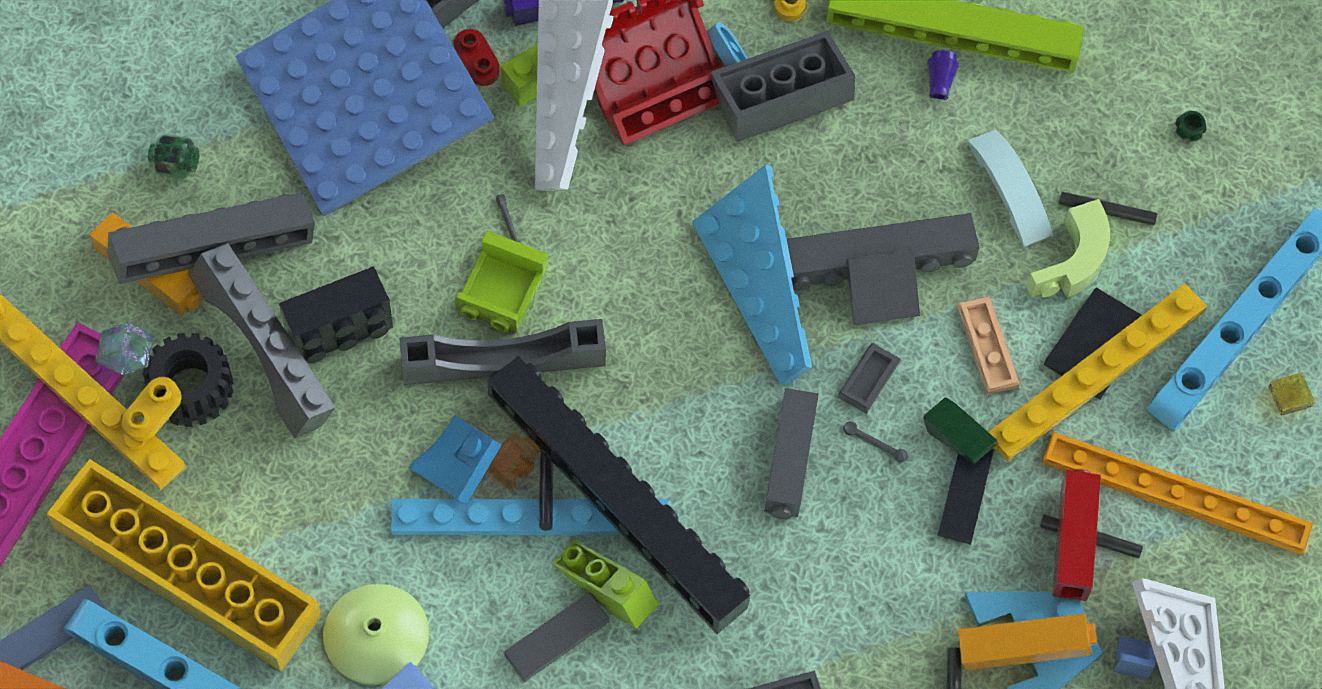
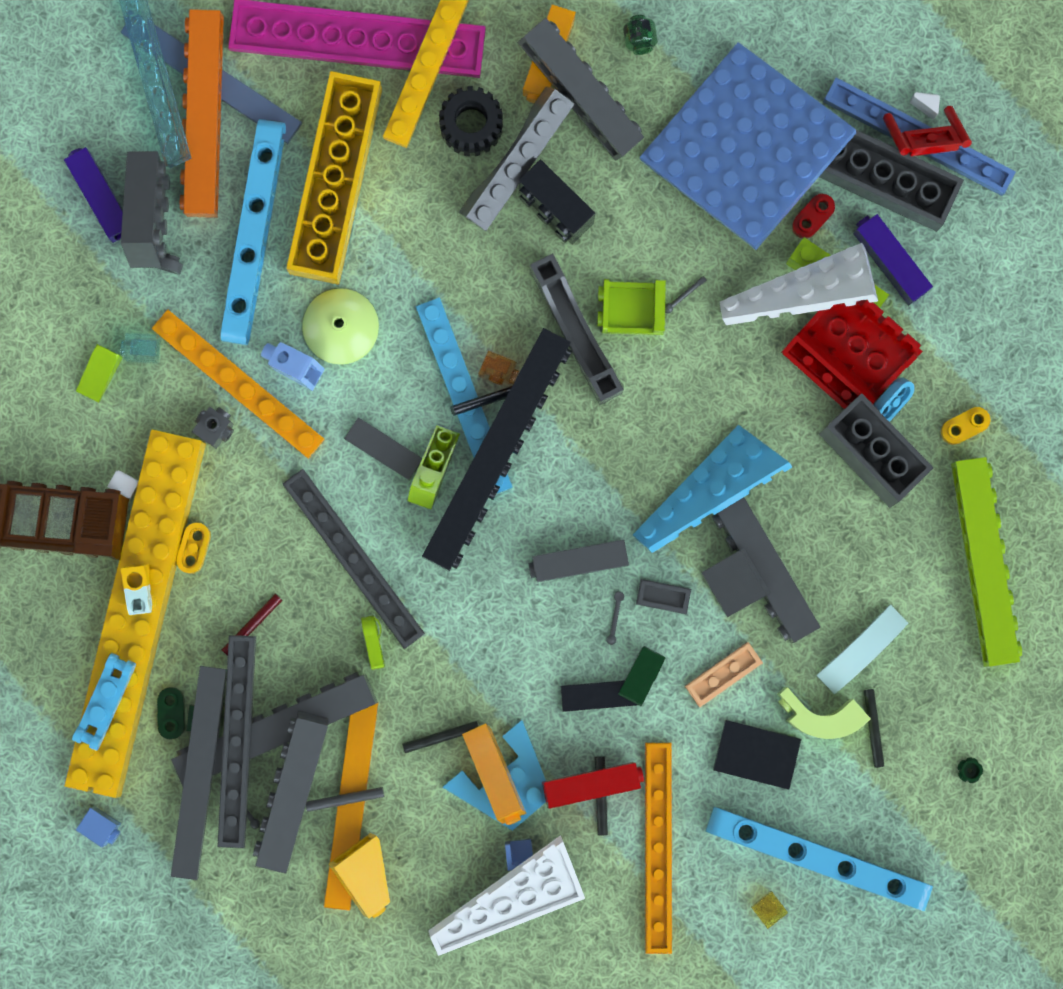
camera: 70 degrees right, 20 degrees up
(124, 348) = (470, 68): clear light blue brick -> none
(154, 409) = (430, 106): yellow plate -> none
(457, 459) = (483, 330): dark azure plate -> none
(942, 71) = (938, 566): dark purple cone -> none
(1097, 372) = (730, 761): yellow plate -> none

